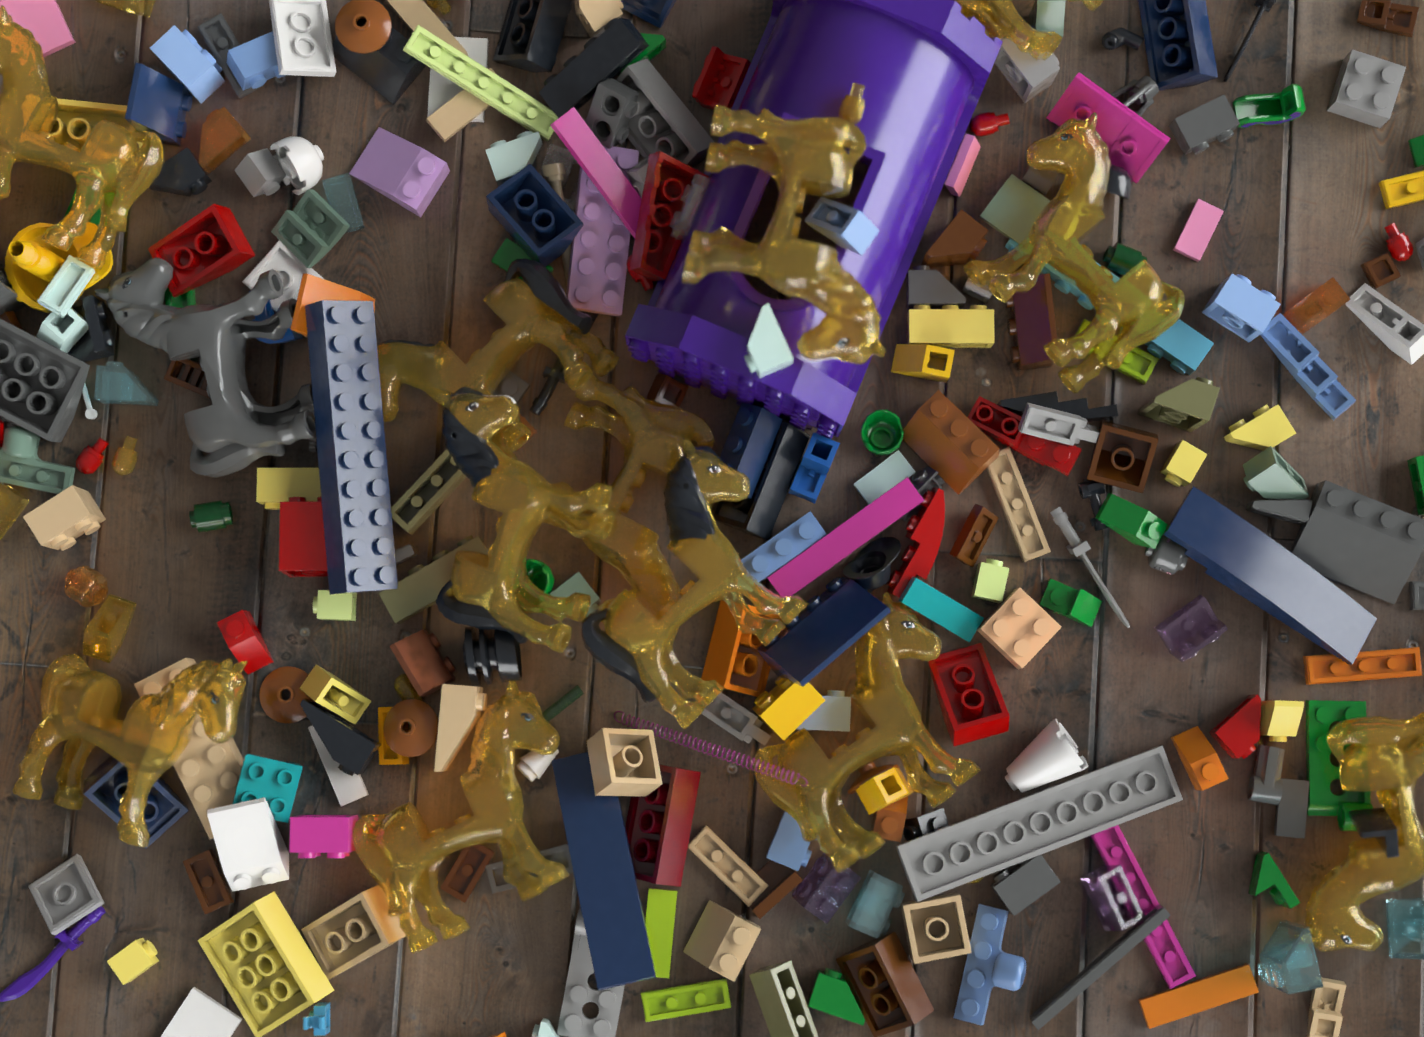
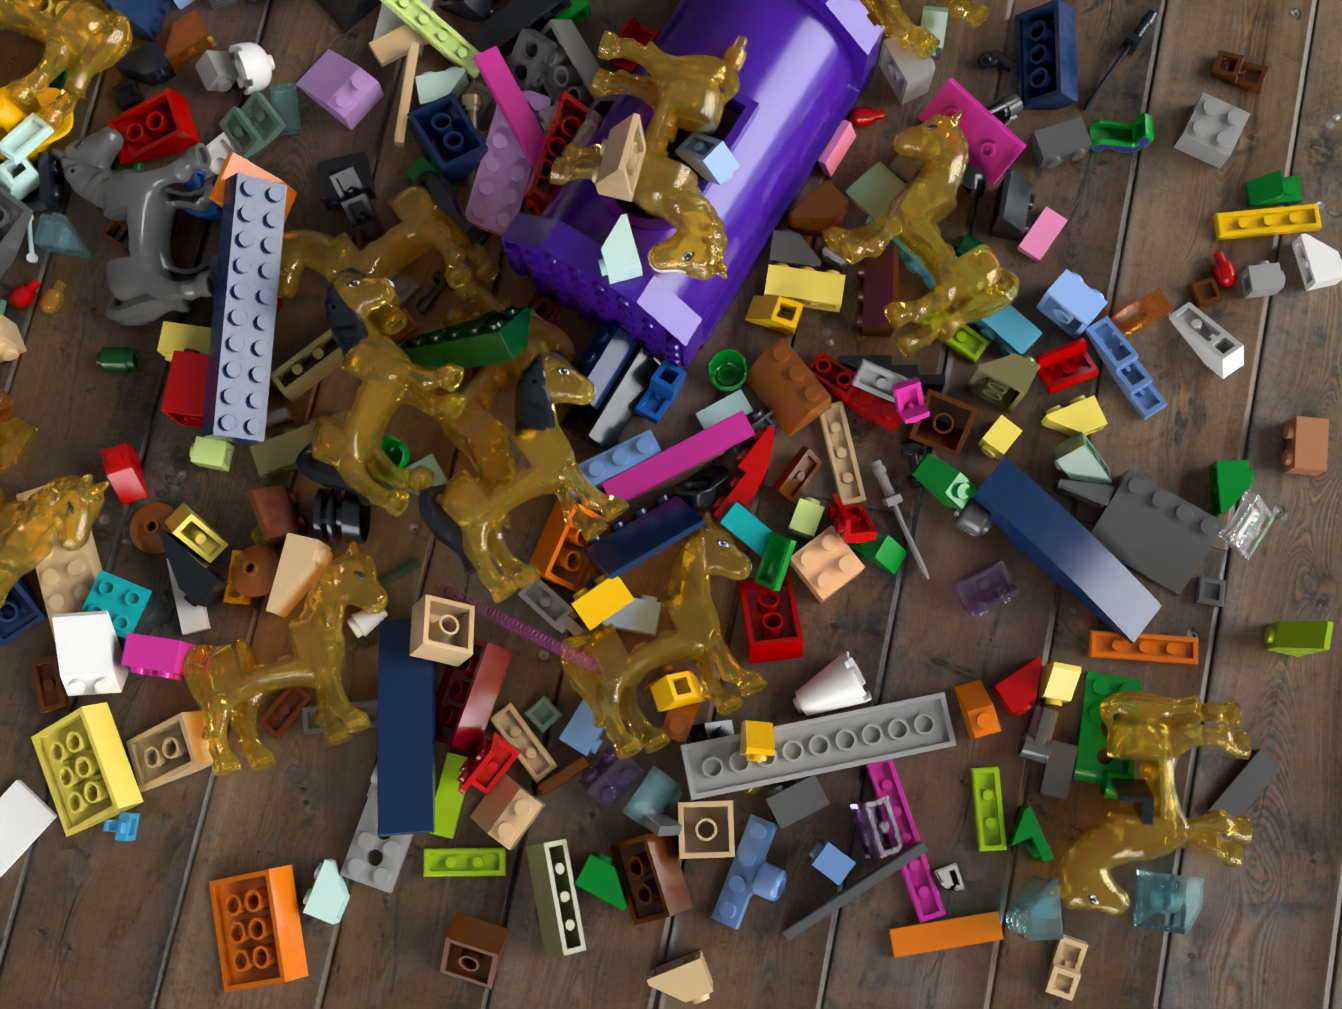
camera: 15 degrees right, 5 degrees down
(163, 211) = (128, 94): none -> black tile
(427, 277) = (328, 192): none -> black bracket
(451, 311) = (357, 205): none -> black slope
(479, 171) = (406, 94): none -> tan tile
(604, 447) = (474, 342): none -> dark green wedge
(696, 896) = (488, 765): none -> red bracket
(743, 832) = (543, 714): none -> sand green tile
(759, 255) = (621, 159): none -> tan slope
(890, 931) = (662, 824): none -> dark grey tile
(965, 634) = (775, 561): none -> green tile
(978, 830) = (757, 740): none -> yellow slope
(1039, 579) = (851, 521): none -> red bracket
(1070, 941) = (830, 861): none -> medium blue brick
(1085, 442) = (910, 401): none -> dark pink bracket
(1162, 207) = (1011, 207): none -> black slope
(1193, 938) = (948, 877): none -> tile
(1224, 860) = (988, 809): none -> lime tile
(1243, 375) = (1066, 366): none -> red bracket

